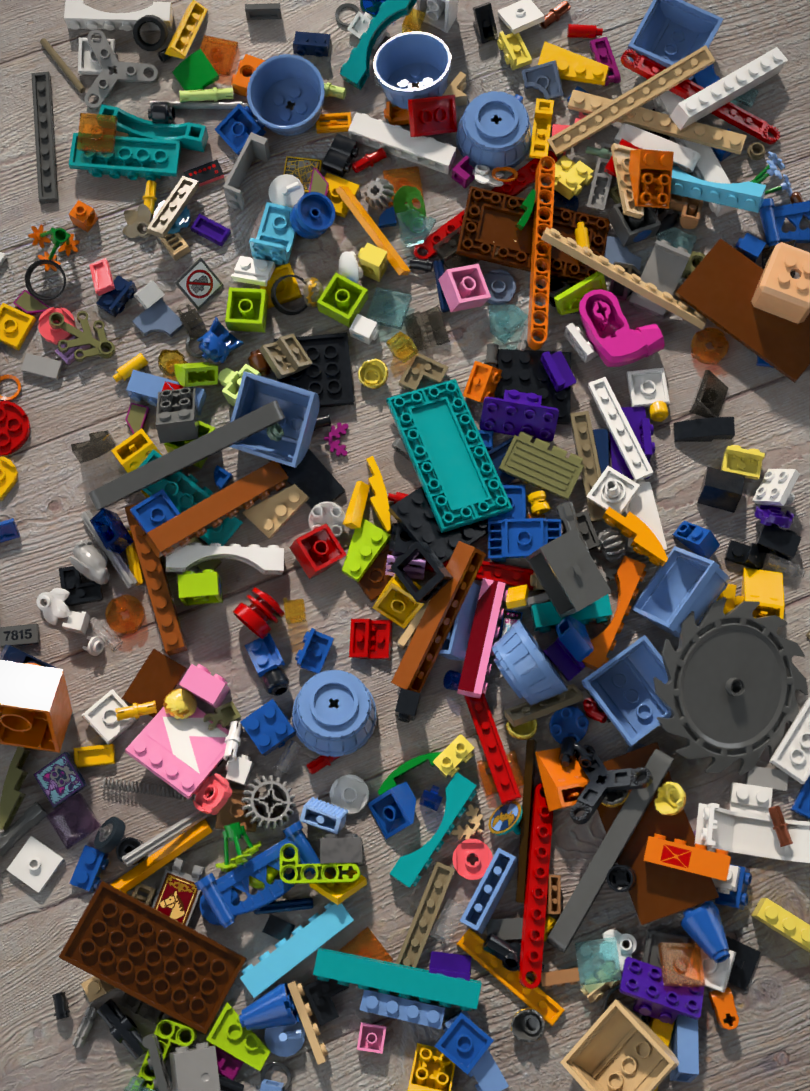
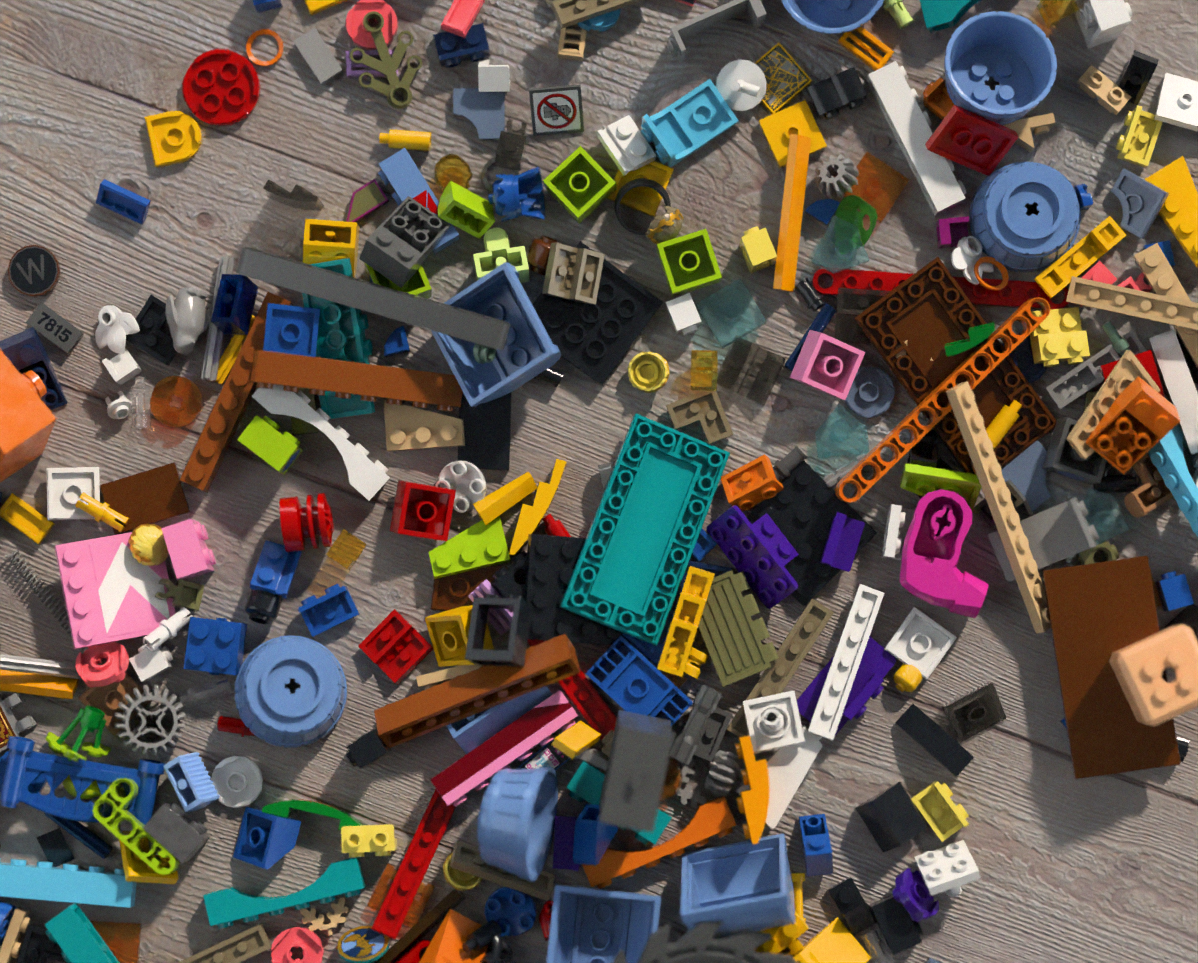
camera: 45 degrees right, 10 degrees up
(210, 230) = (624, 56): dark purple tile -> none
(312, 215) = (737, 152): blue wheel -> none
(318, 183) = (778, 111): olive tile -> none
(334, 445) = (541, 411): magenta animal -> none
(349, 267) = (726, 235): white dish -> none
(369, 160) = (862, 126): red axle -> none
(431, 798) = (310, 859): clear blue tile -> none
(451, 680) = (437, 762): clear blue tile -> none
(482, 42) = (1099, 85): none -> tan hinge
(516, 481) = (686, 621): none -> yellow slope
(602, 447) = (813, 660): dark blue piece -> none
(718, 341) = (1031, 642): clear orange plate -> none

